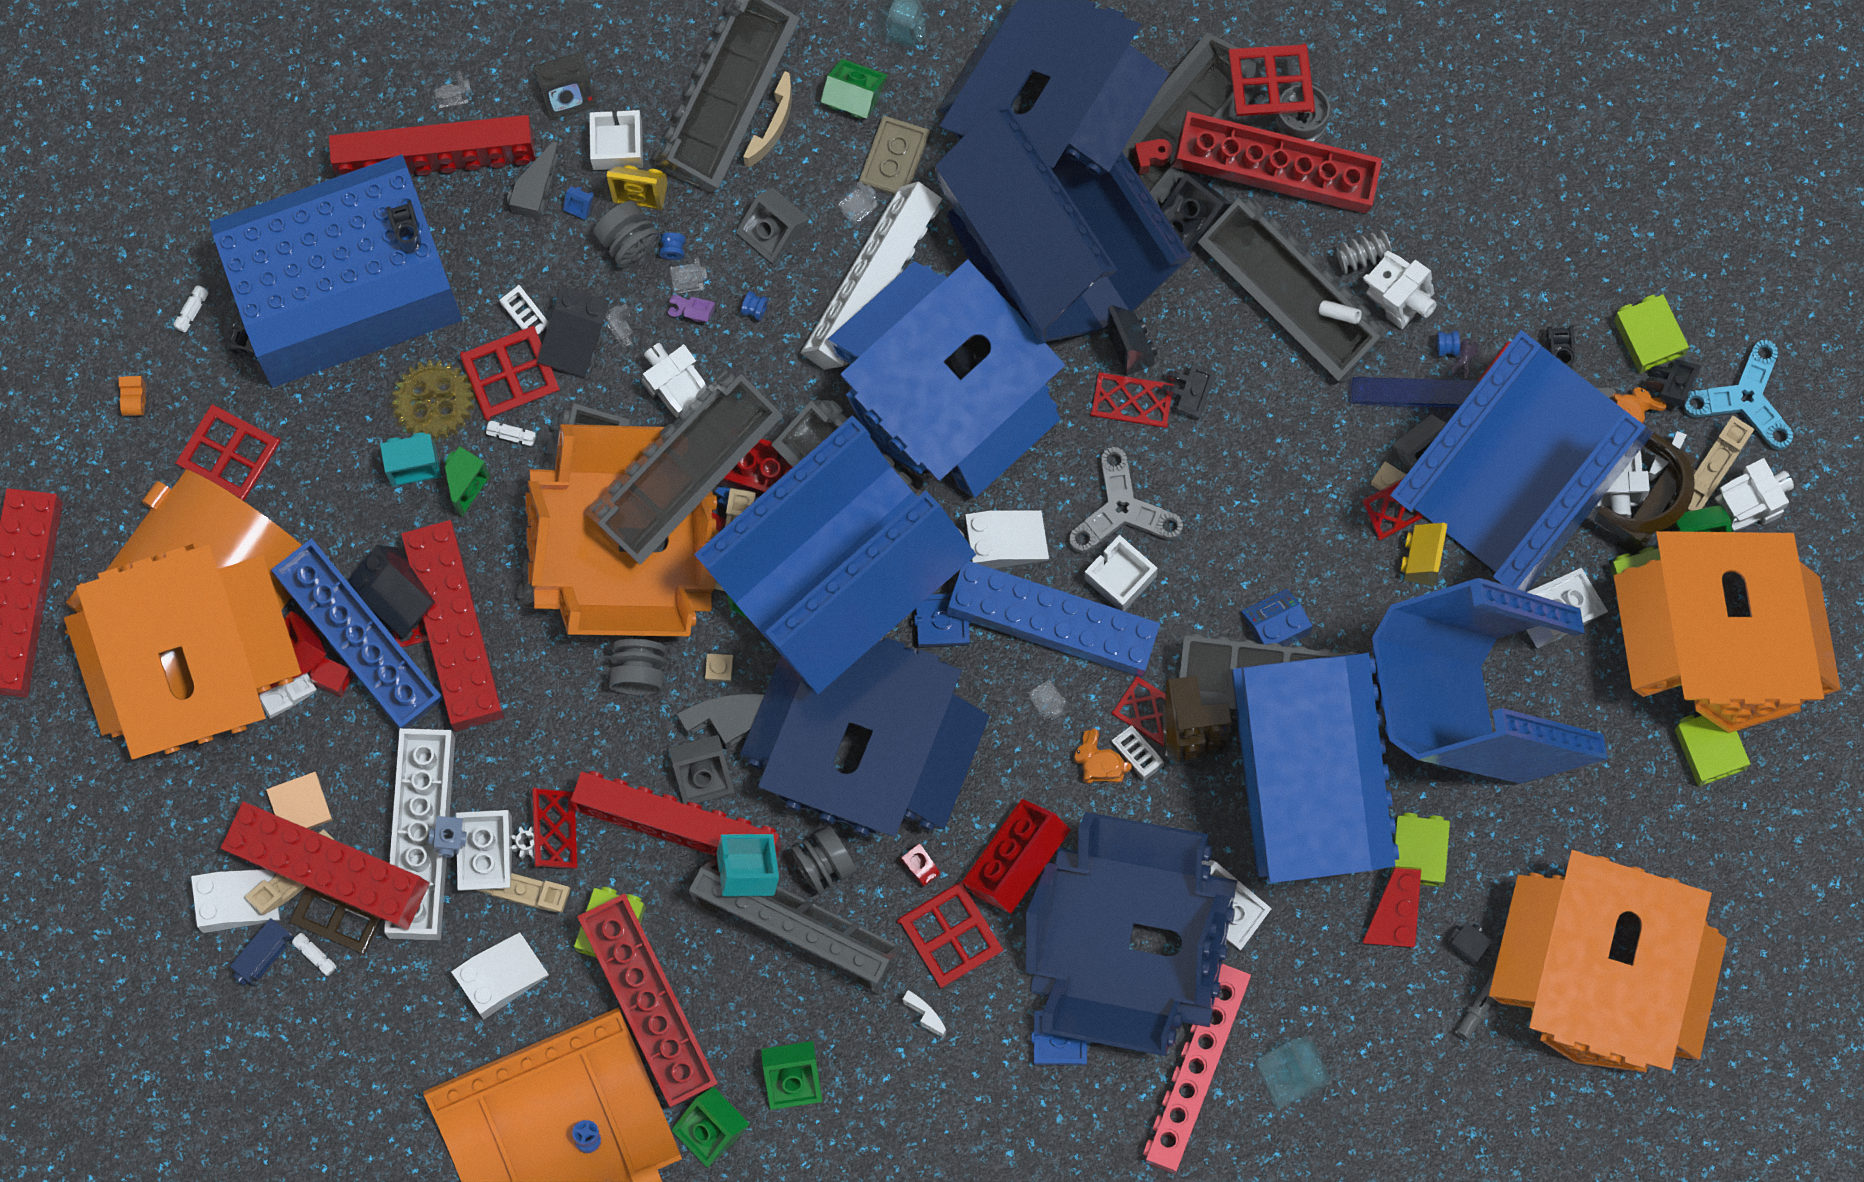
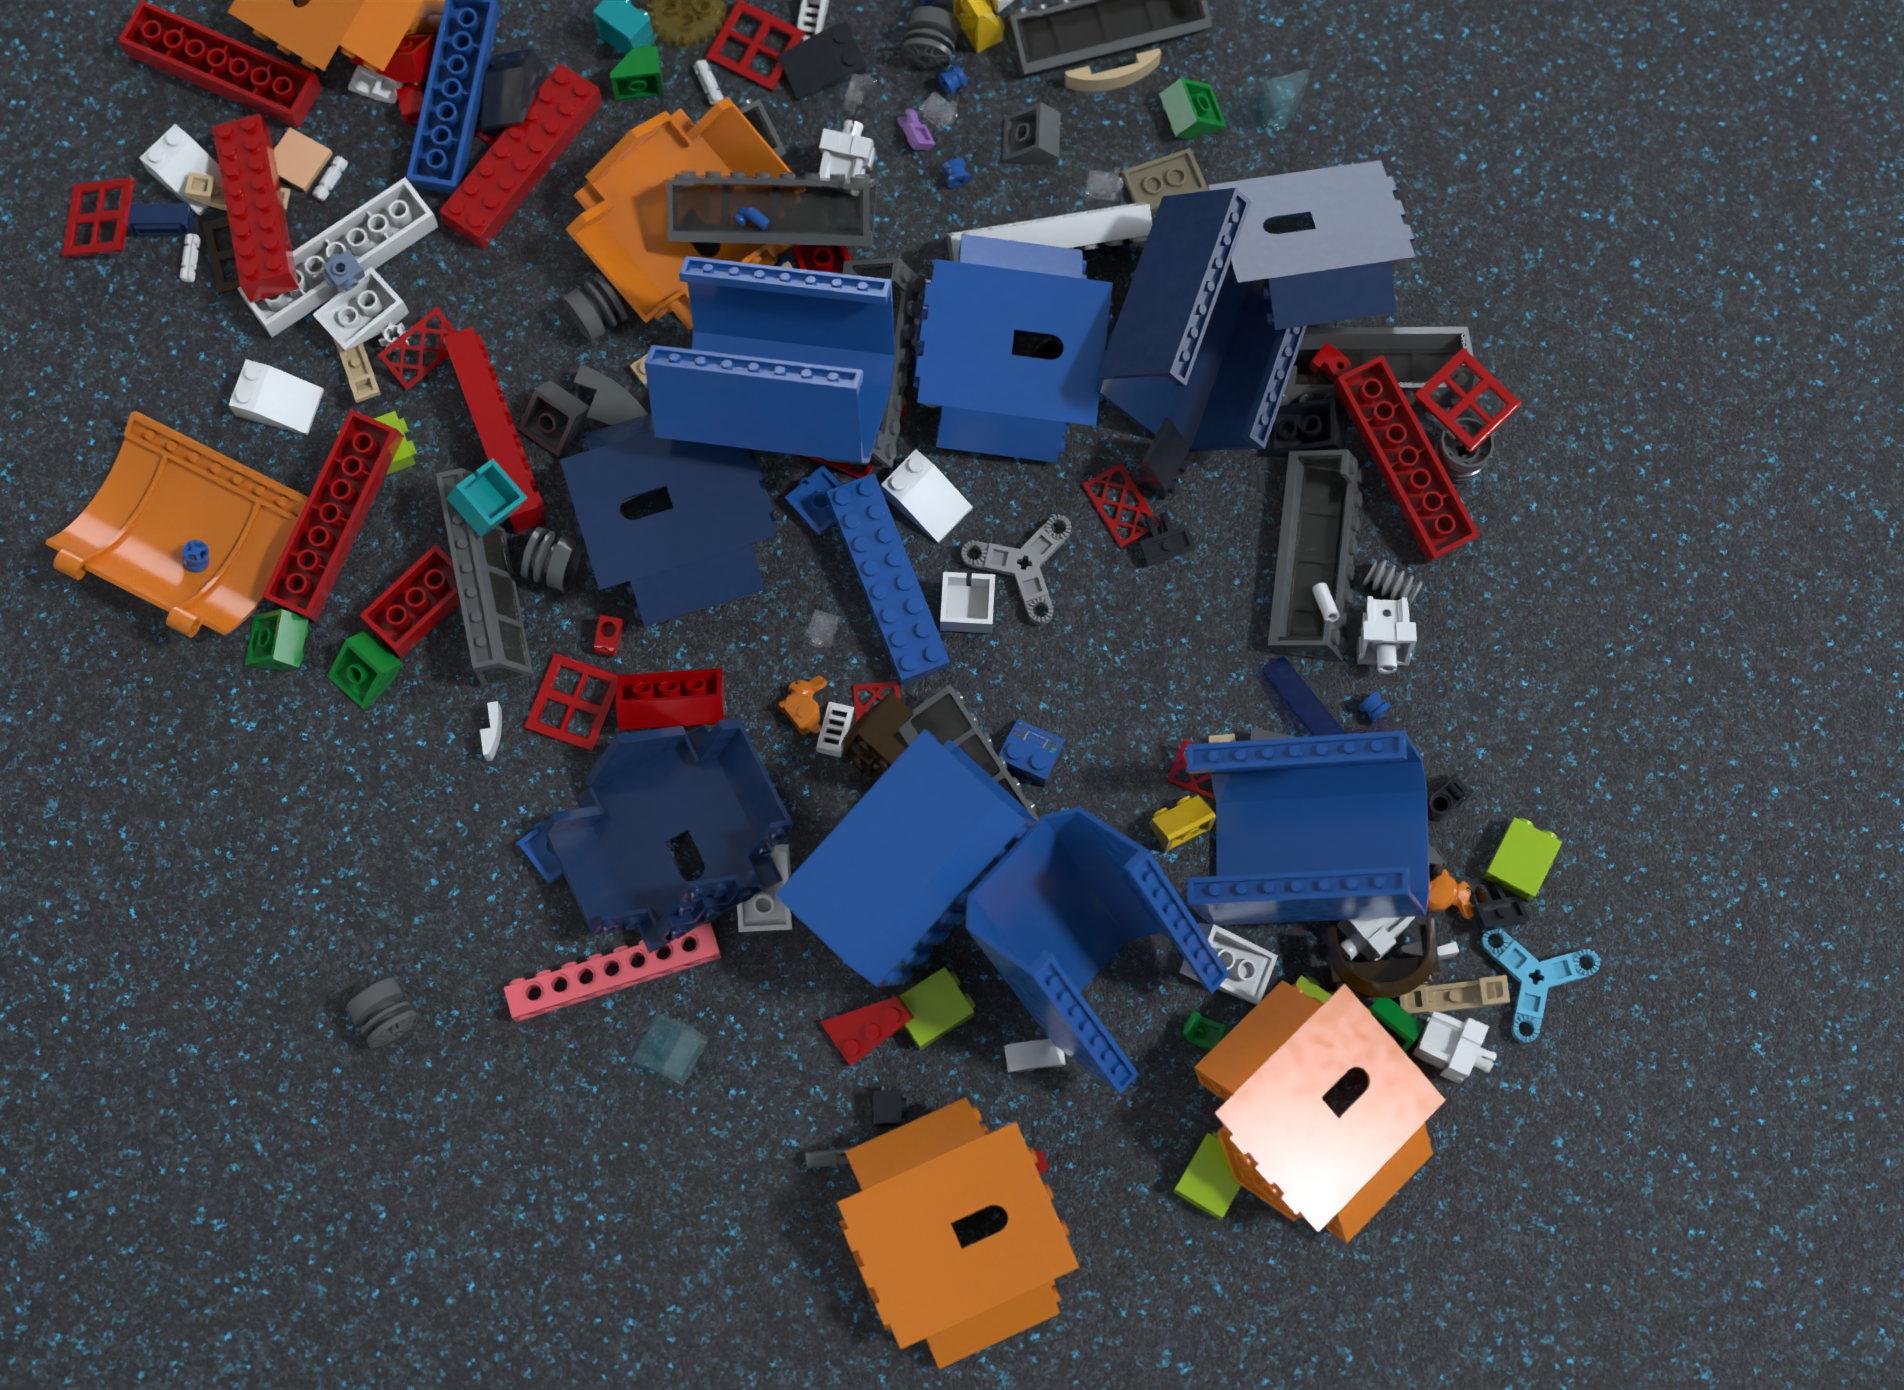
camera: 45 degrees right, 0 degrees up
(163, 802) = (220, 64): none -> red brick
(217, 1000) = (97, 217): none -> red window
(339, 791) = (330, 178): none -> white axle
(675, 483) = (752, 215): none -> blue arm
(771, 991) = (414, 602): none -> red brick
(1515, 805) = (1033, 1055): none -> white slope
(1598, 666) = (1203, 1031): none -> green bracket

